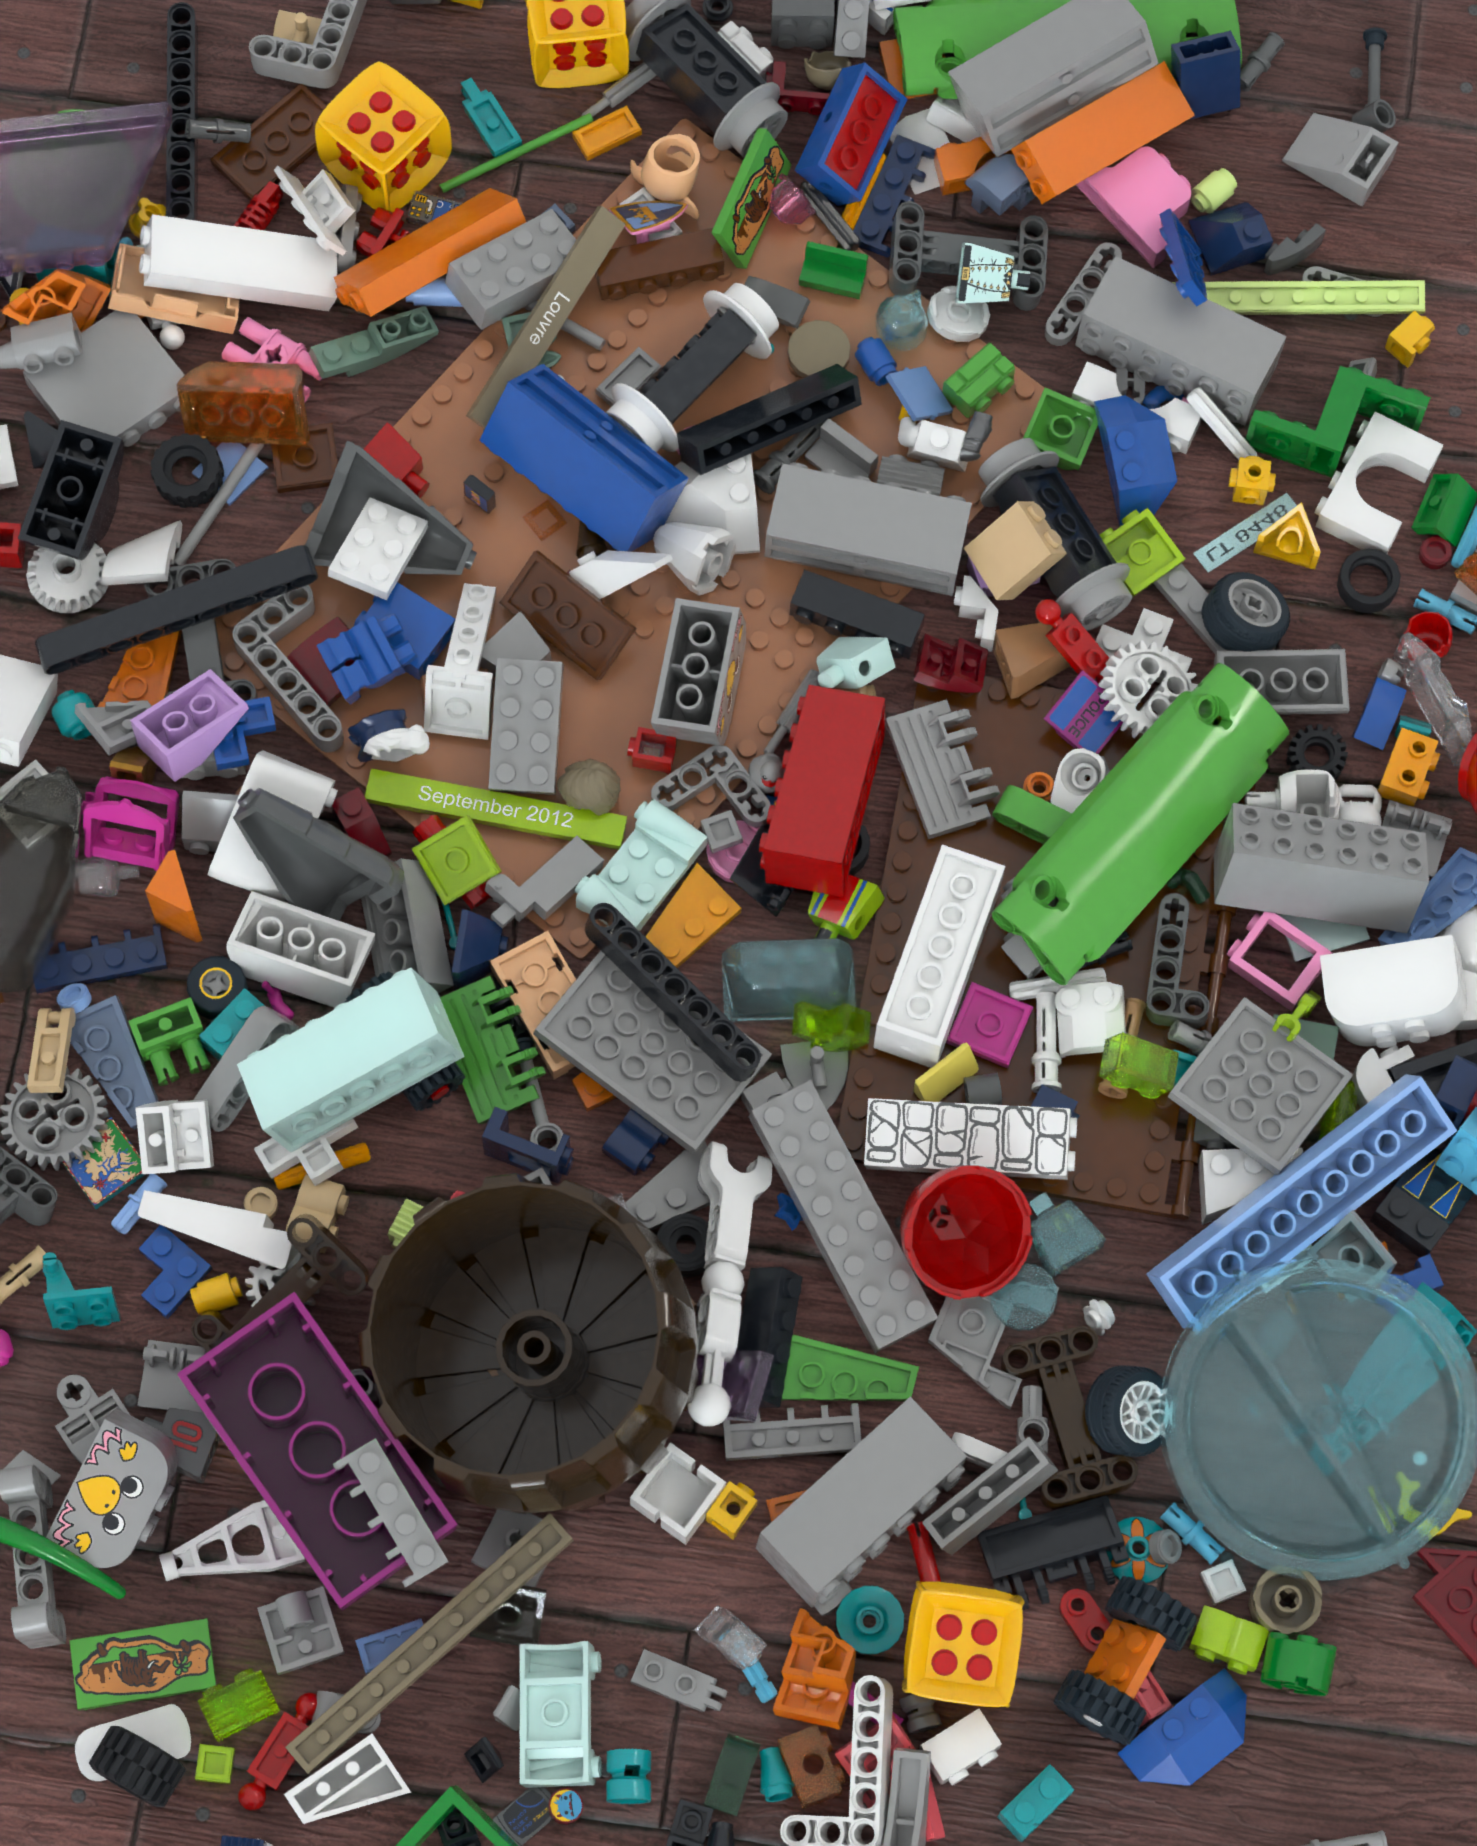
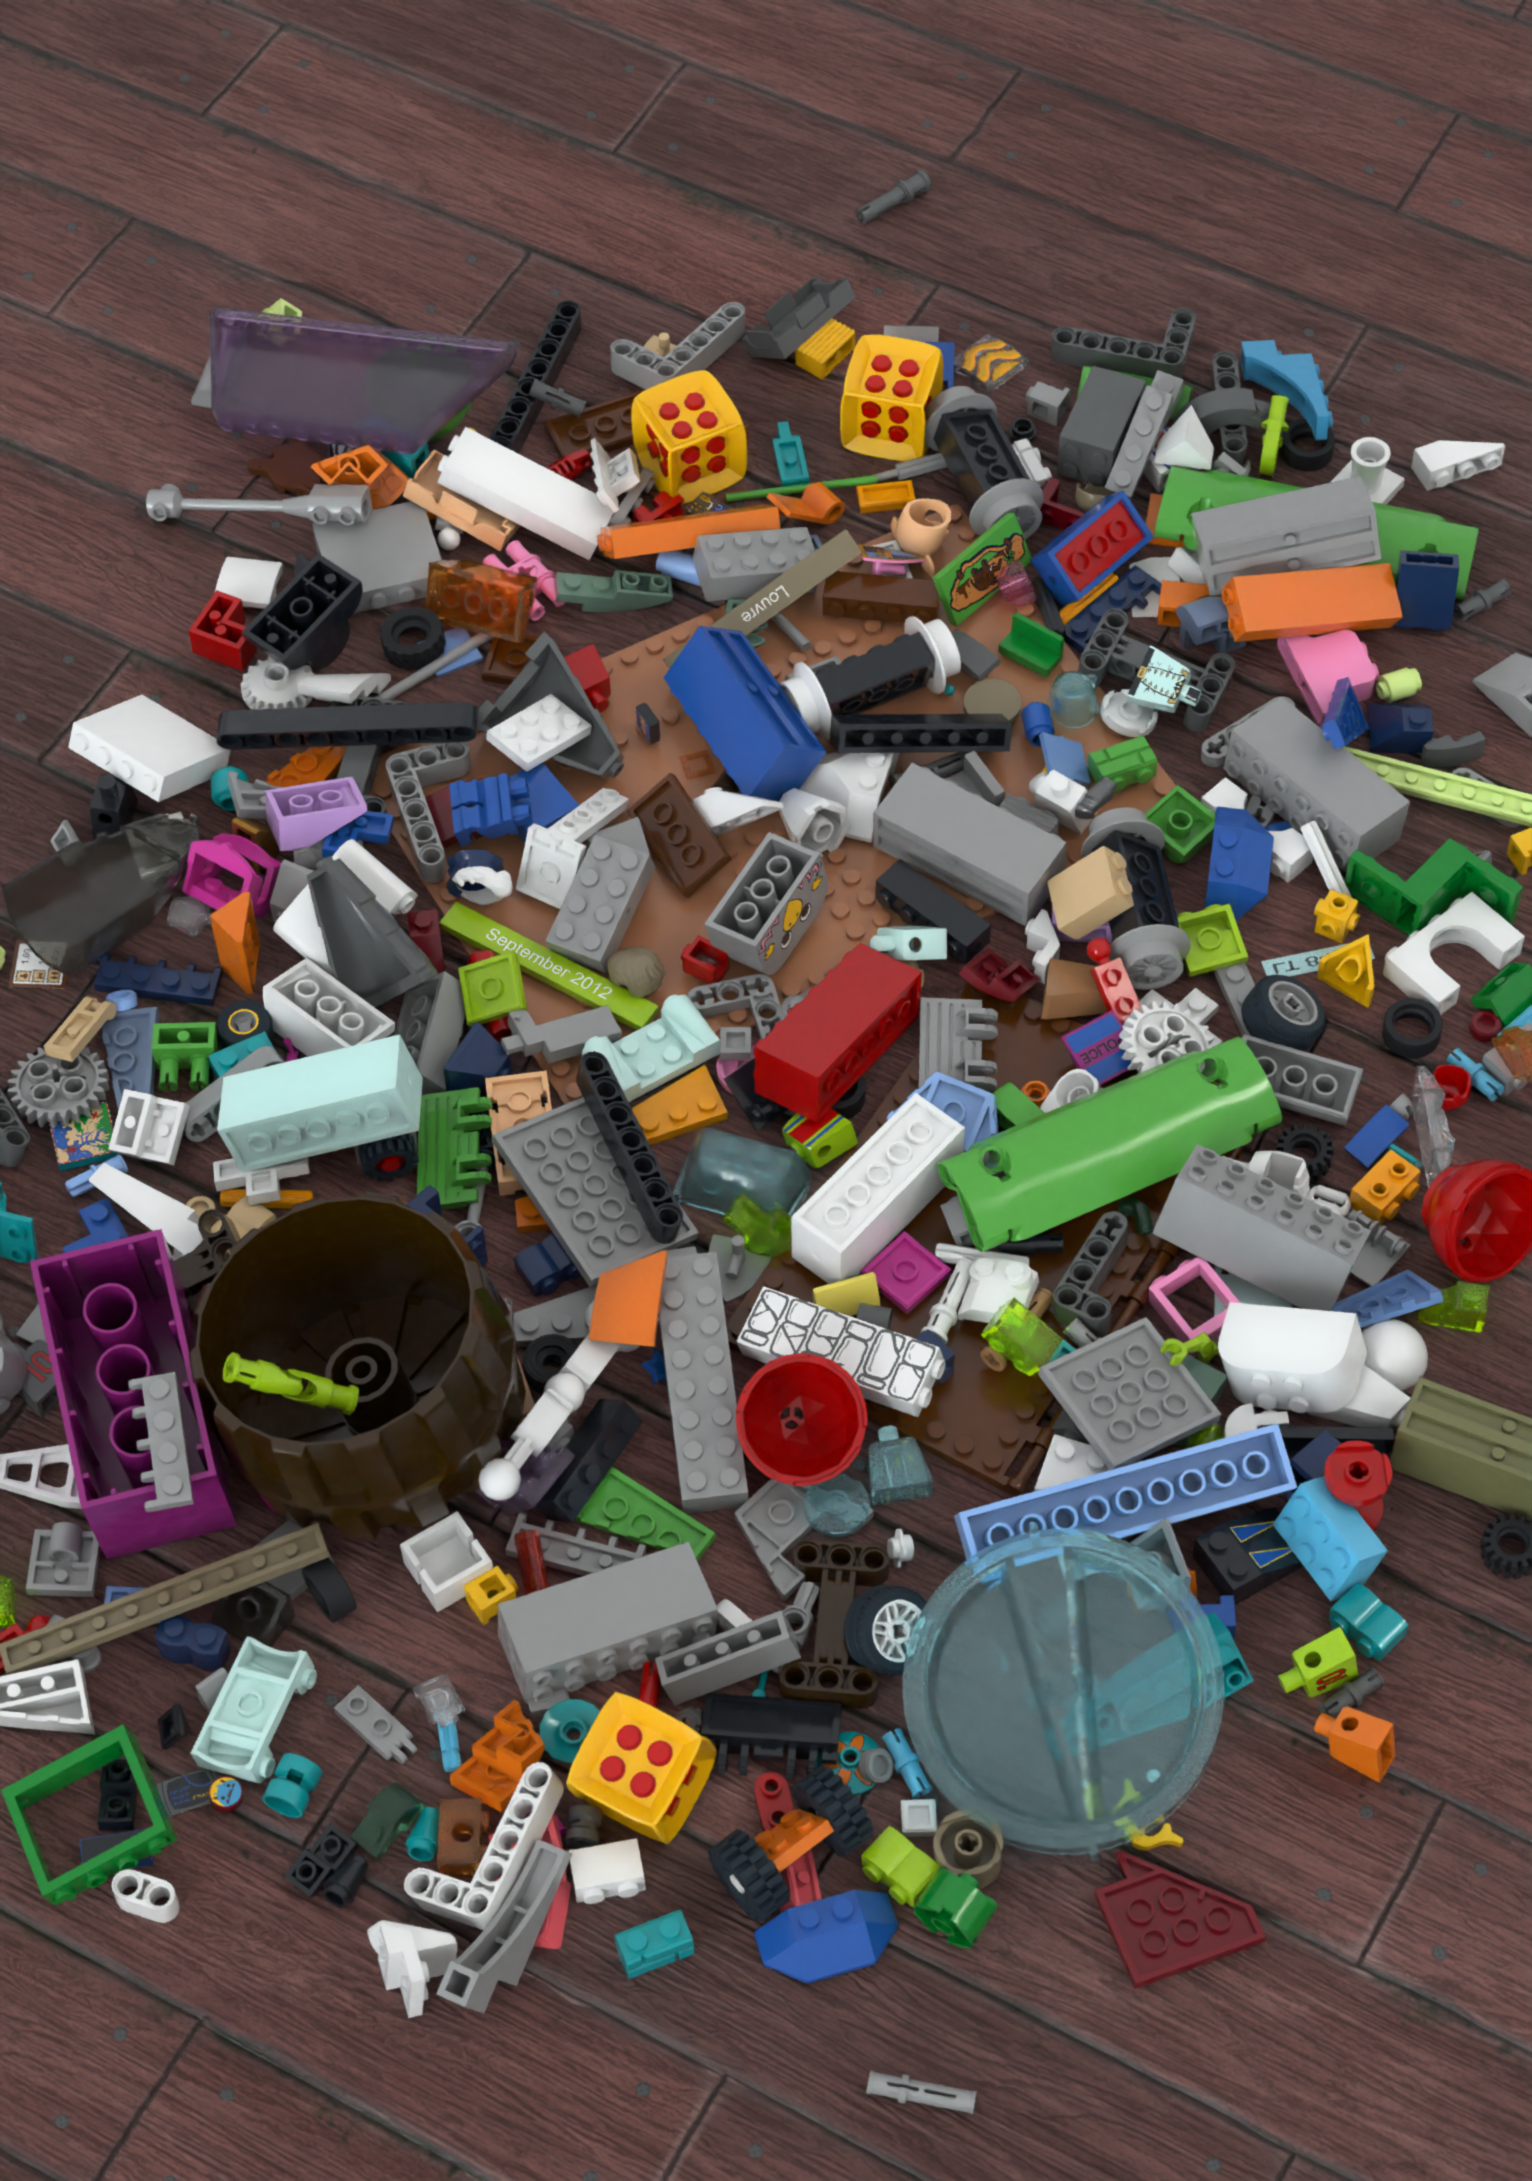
camera: 25 degrees right, 15 degrees down
(477, 1667) = (198, 1643): none -> dark blue brick
(490, 1404) = (271, 1379): none -> lime piece
(541, 175) = (815, 505): none -> orange door
(581, 1568) = (329, 1589): none -> black tyre
(750, 1166) = (629, 1302): none -> orange slope
(759, 1466) = (531, 1561): none -> clear red slope
(974, 829) = (963, 1103): none -> light blue wing
(977, 1573) = (691, 1717): none -> dark grey pin

